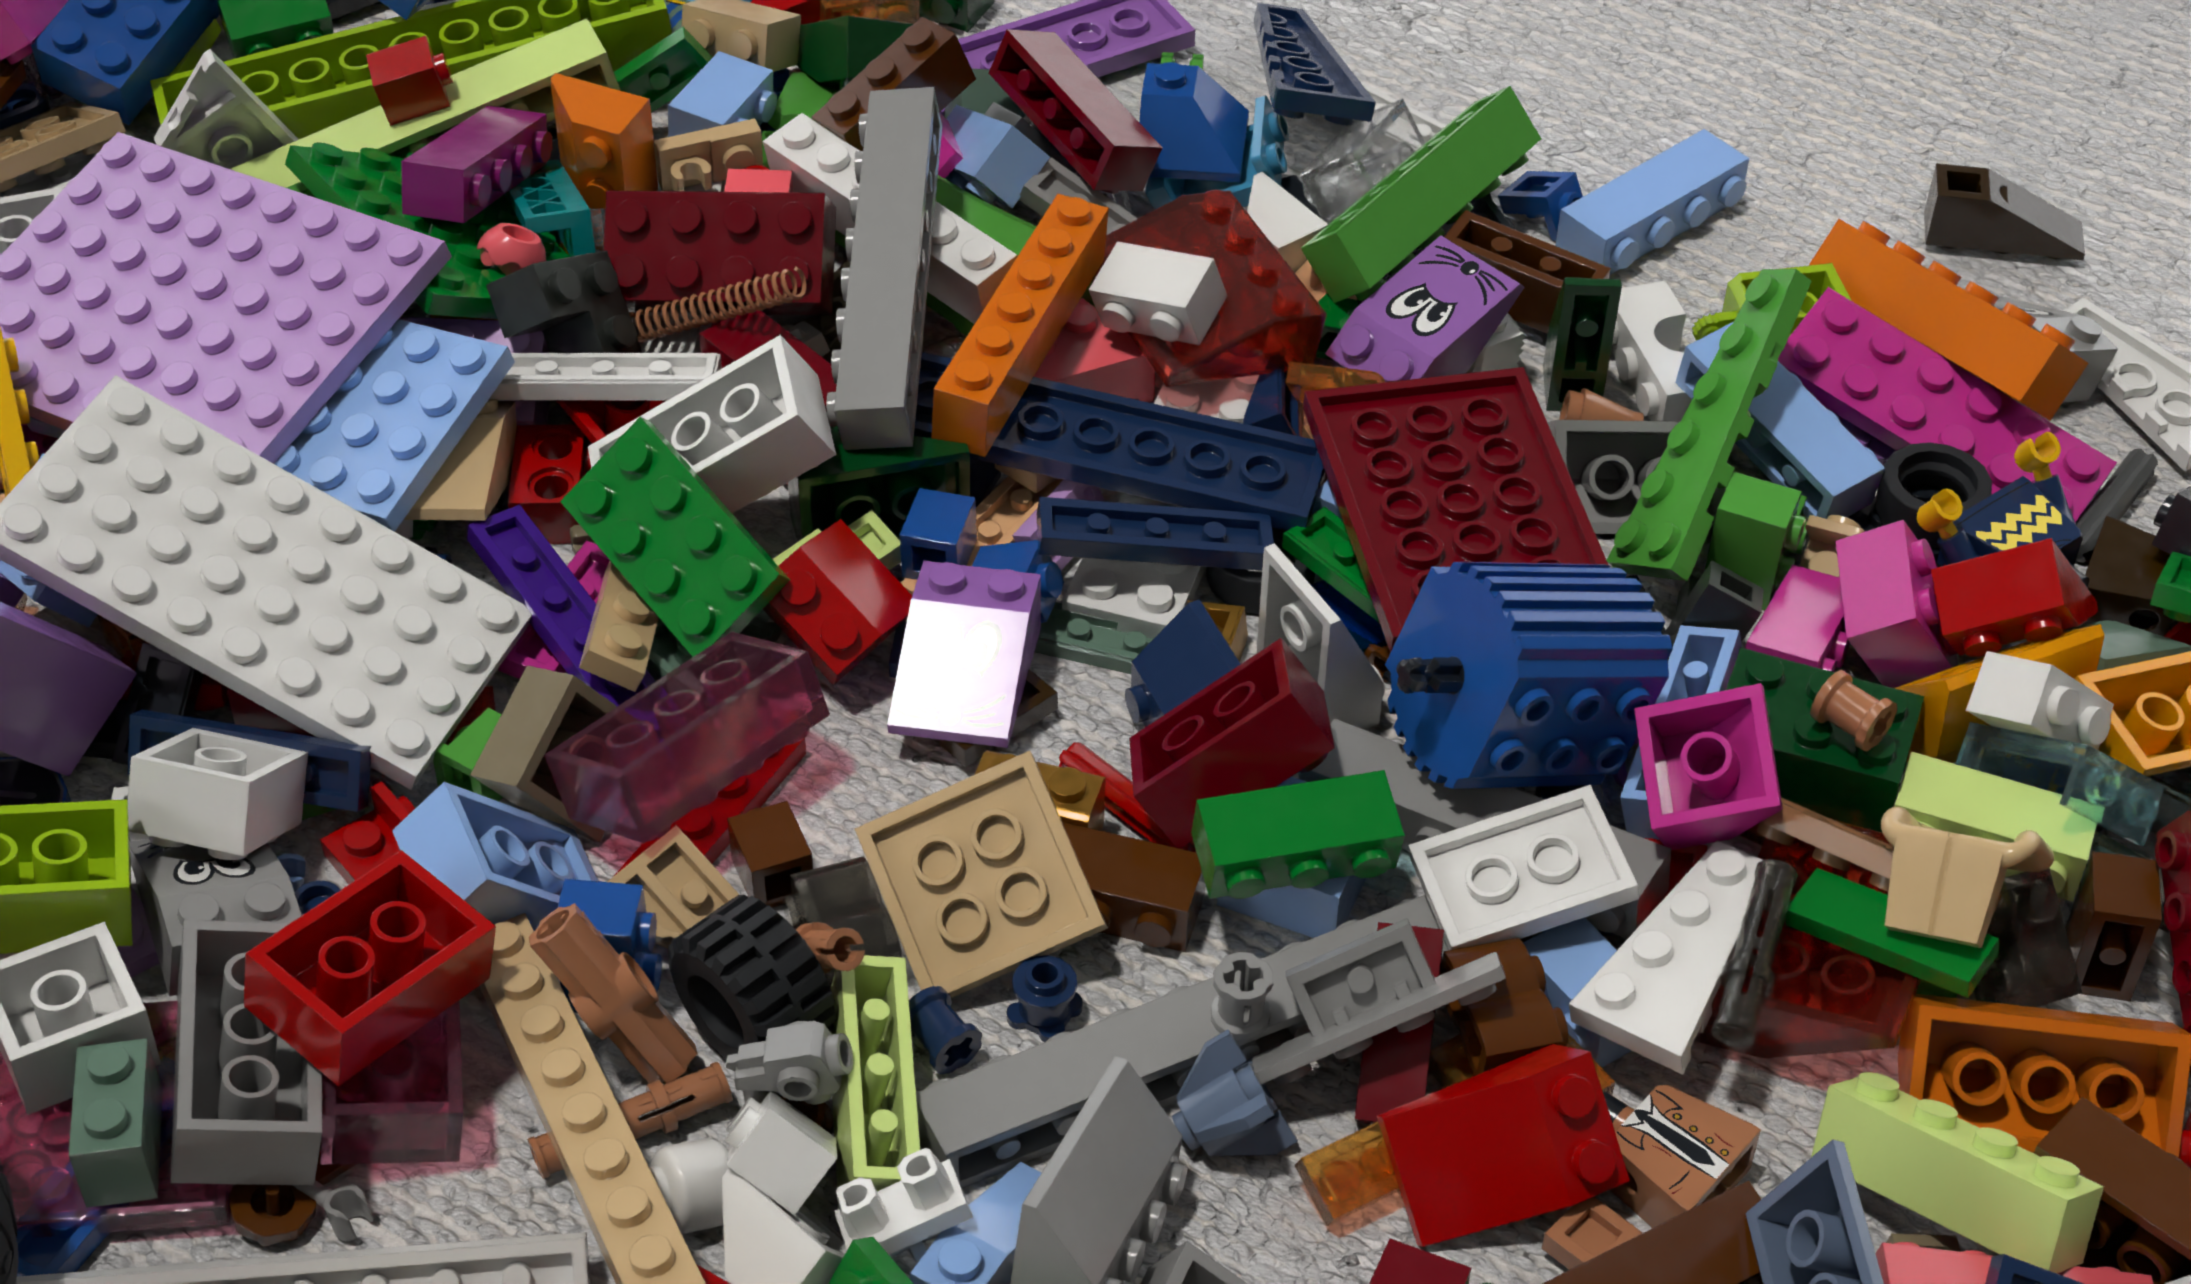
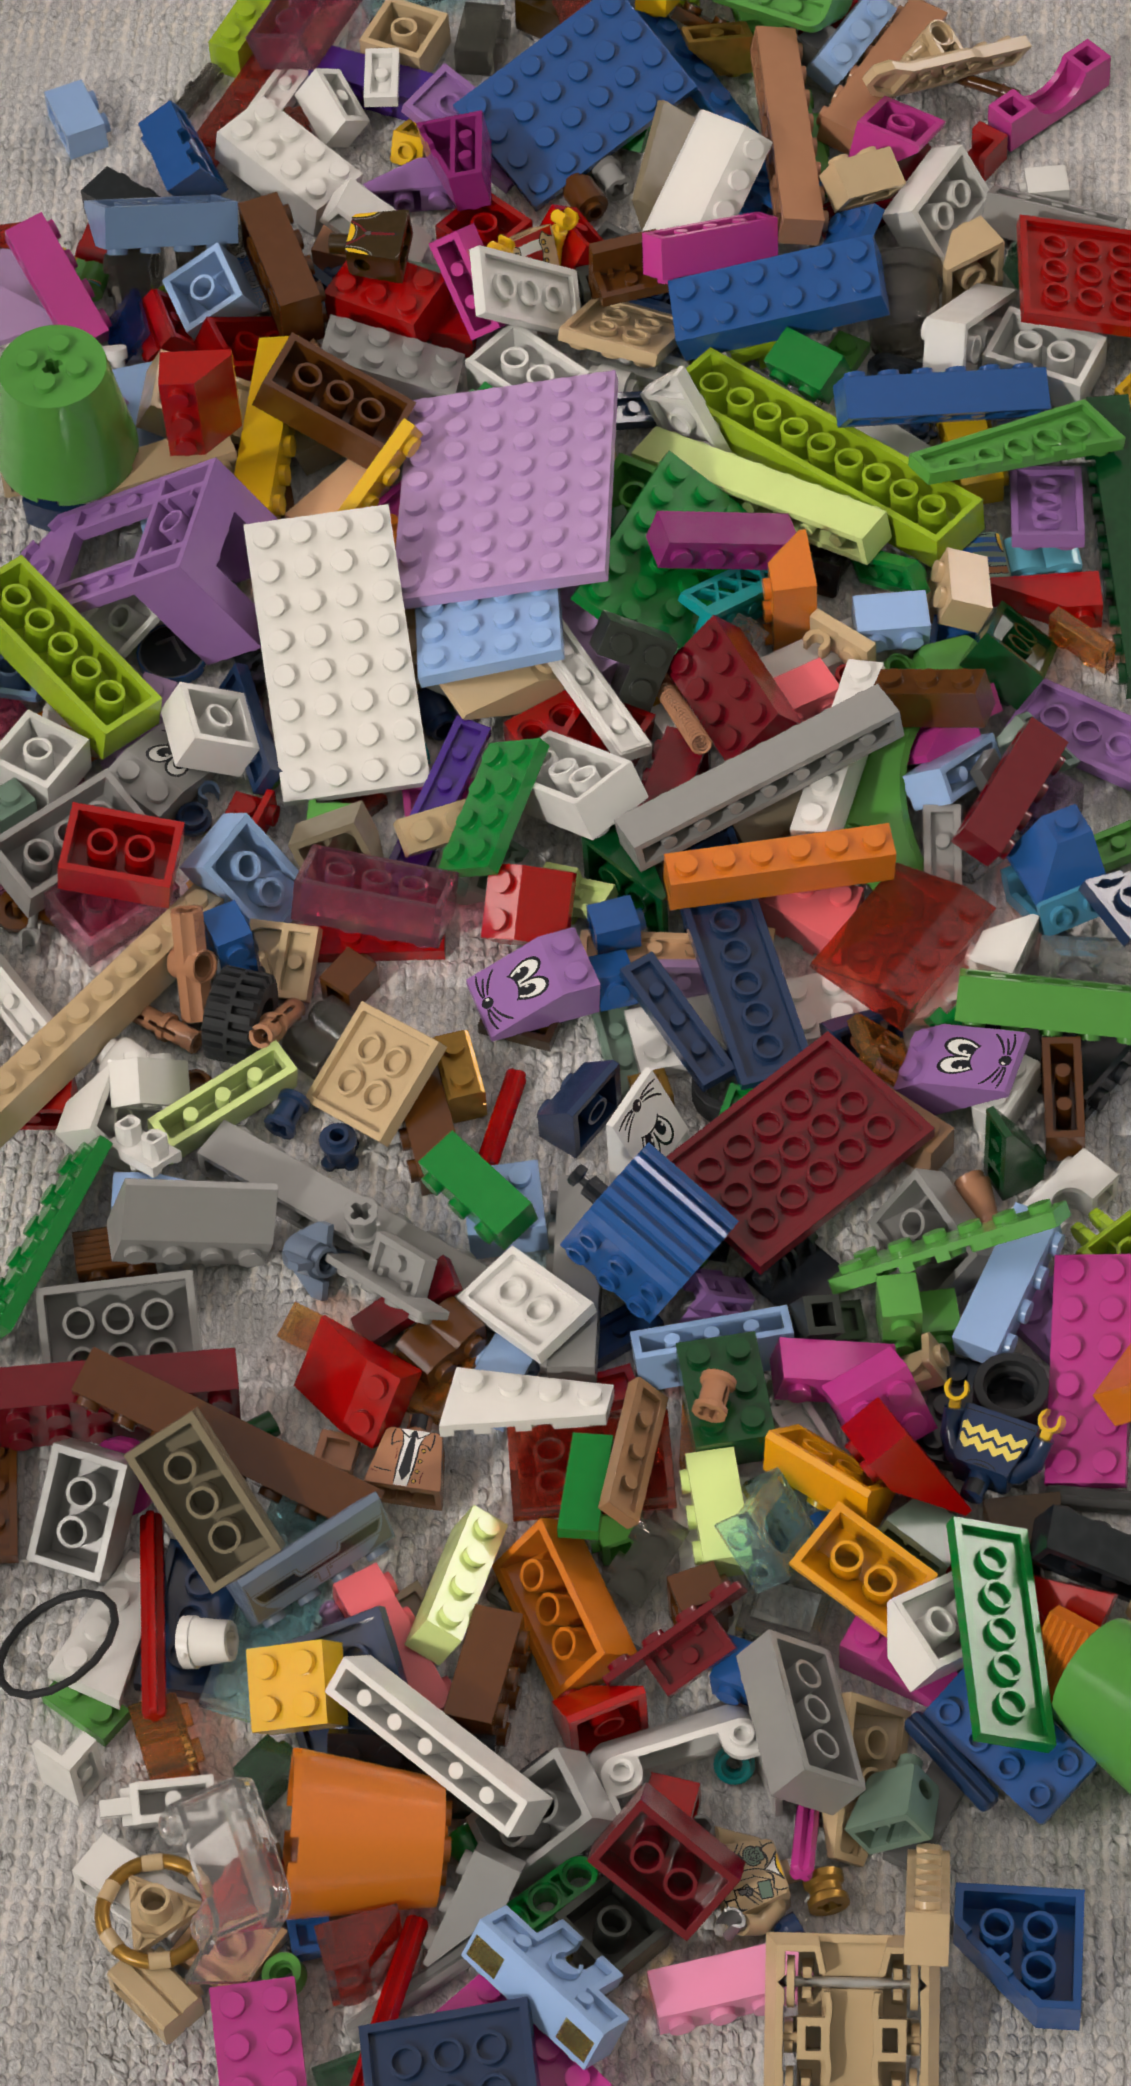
camera: 65 degrees right, 10 degrees up
(409, 80) = (769, 465): red brick -> none
(511, 247) = (658, 603): coral plate -> none
(796, 1061) = (197, 1057): light grey piece -> none
(1158, 293) = (856, 918): white brick -> none
(1231, 739) = (526, 1131): dark red brick -> none
(1708, 766) = (628, 1341): dark pink slope -> none
(1740, 1012) = (531, 1429): clear smoke pin -> none
(1951, 881) = (608, 1484): tan piece -> none
(2038, 701) = (788, 1487): white brick -> none

